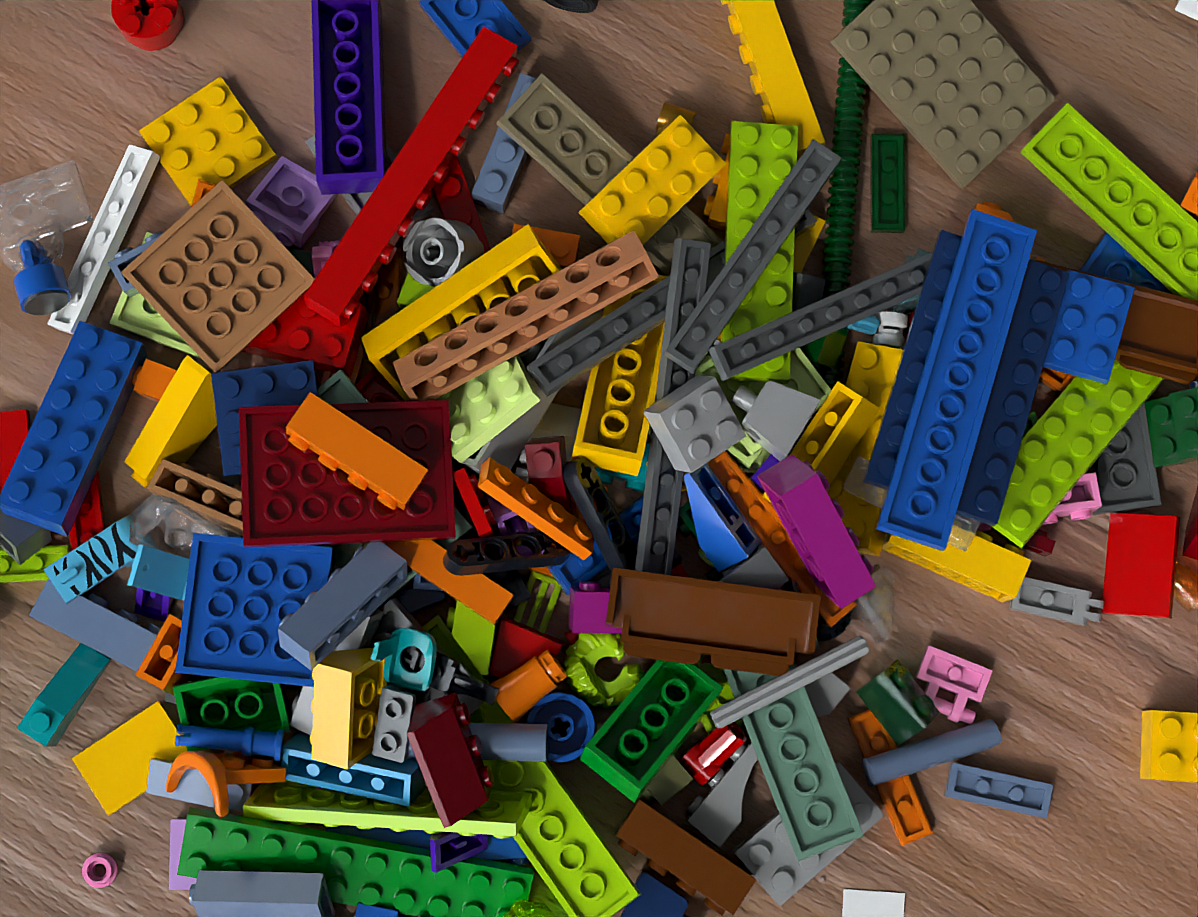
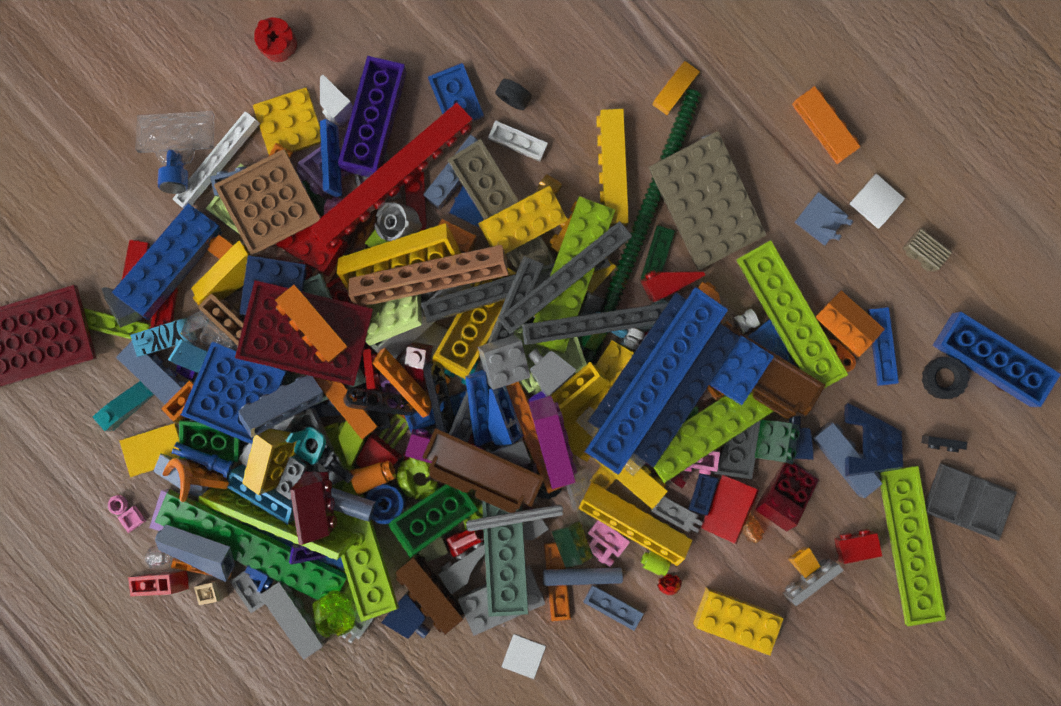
camera: 25 degrees right, 5 degrees up
(130, 888) = (131, 519): none -> bright pink tile
(281, 86) = (335, 105): none -> white slope
(299, 178) = (330, 156): none -> blue plate
(548, 197) = (466, 209): none -> blue piece
(599, 63) = (517, 141): none -> white plate
(673, 513) = (479, 406): none -> blue tile
(913, 225) = (665, 283): none -> red slope
(913, 578) = (602, 478): none -> yellow tile
(993, 637) = (635, 524): none -> yellow brick
(1046, 693) = (655, 563): none -> lime brick
(1069, 247) = (746, 321): none -> white wheel
(1081, 722) = (669, 584): none -> red plate
(1088, 554) = (703, 494): none -> dark blue plate
(1139, 47) = (822, 219): none -> sand blue plate

